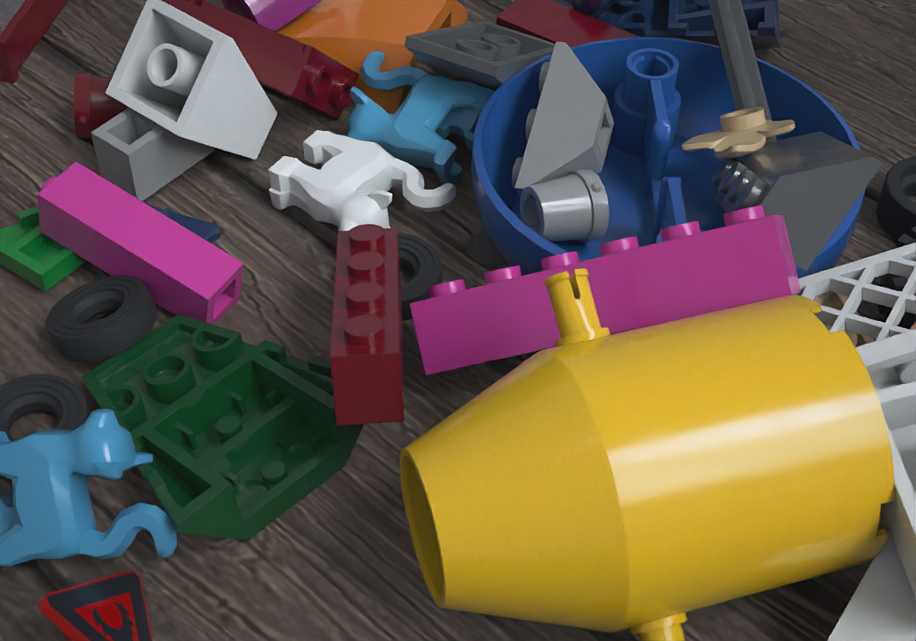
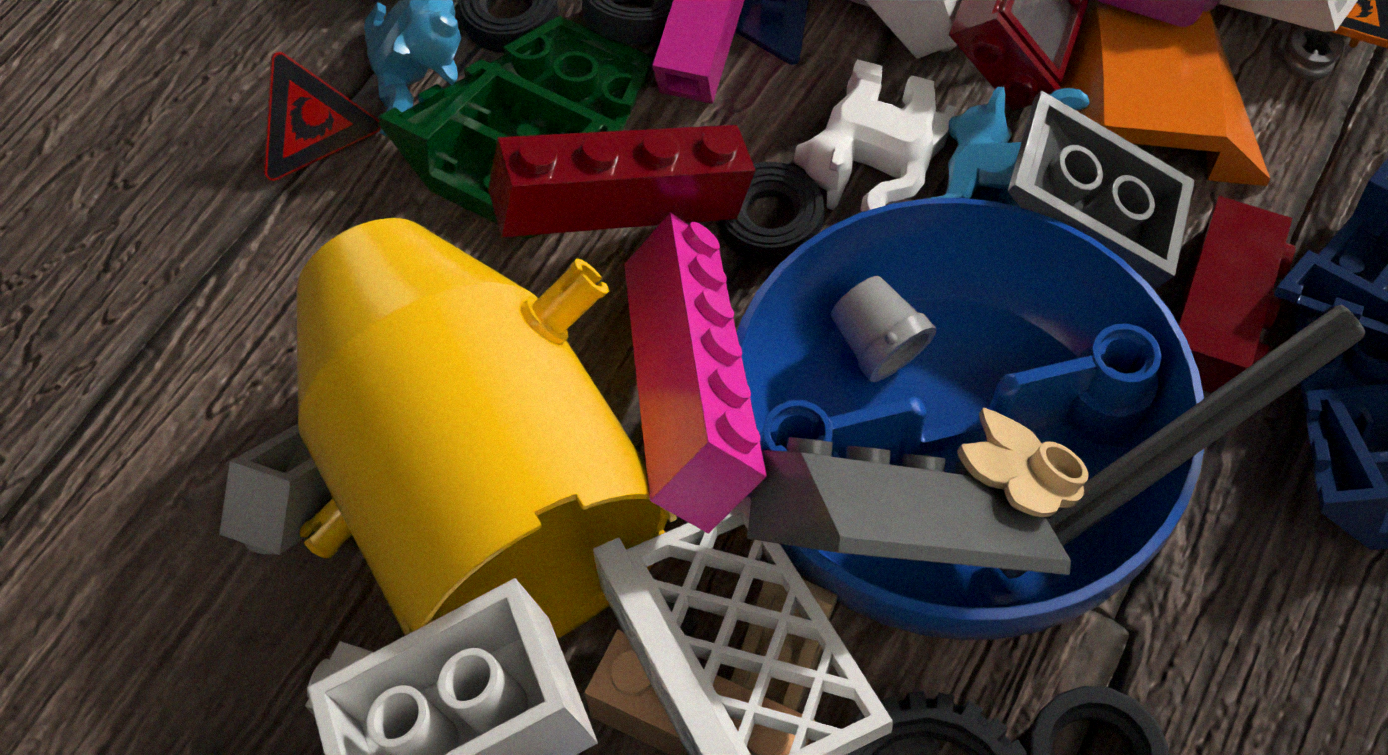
camera: 80 degrees right, 15 degrees up
(568, 126) = (996, 292): light grey slope -> none

